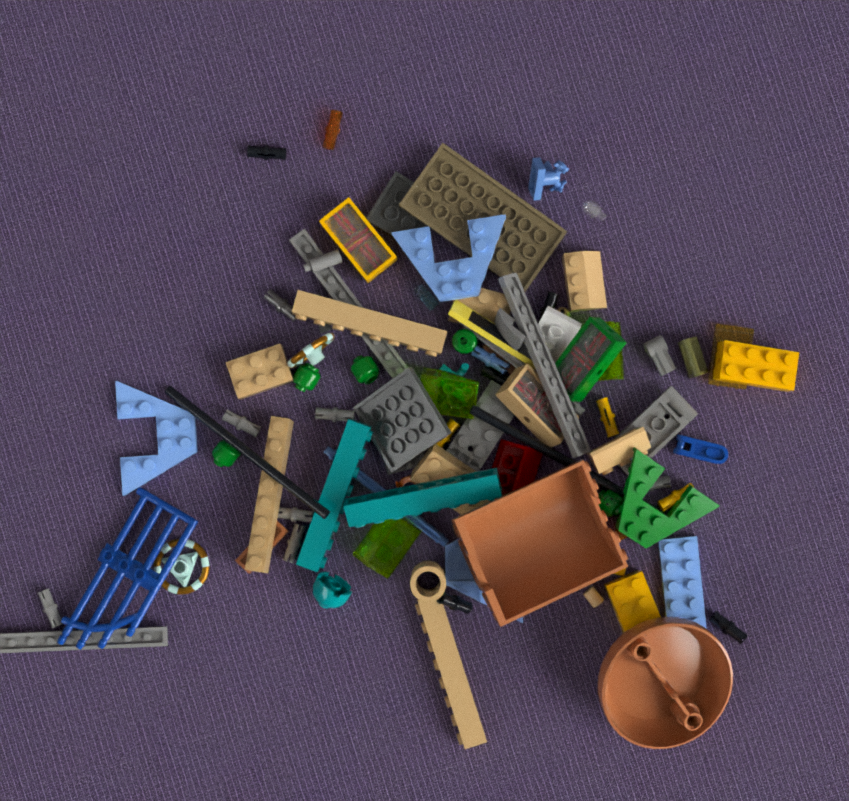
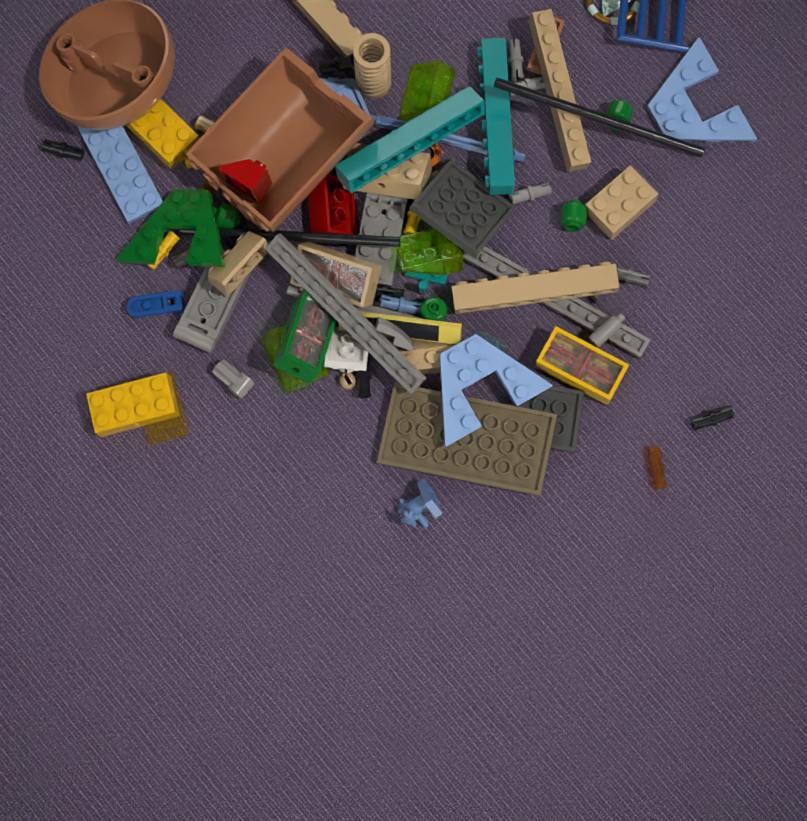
camera: 160 degrees right, 10 degrees down
(241, 423) = (617, 148): light grey pin -> none
(312, 351) = (578, 236): piece -> none
(331, 591) = (461, 30): teal cylinder -> none
(365, 369) = (519, 246): green head -> none
(581, 520) = (247, 177): none -> red slope
(584, 281) = (338, 420): tan slope -> none
(593, 210) = (358, 496): clear cylinder -> none
(612, 428) = (261, 298): yellow pin -> none
(692, 357) = (198, 390): olive tile -> none

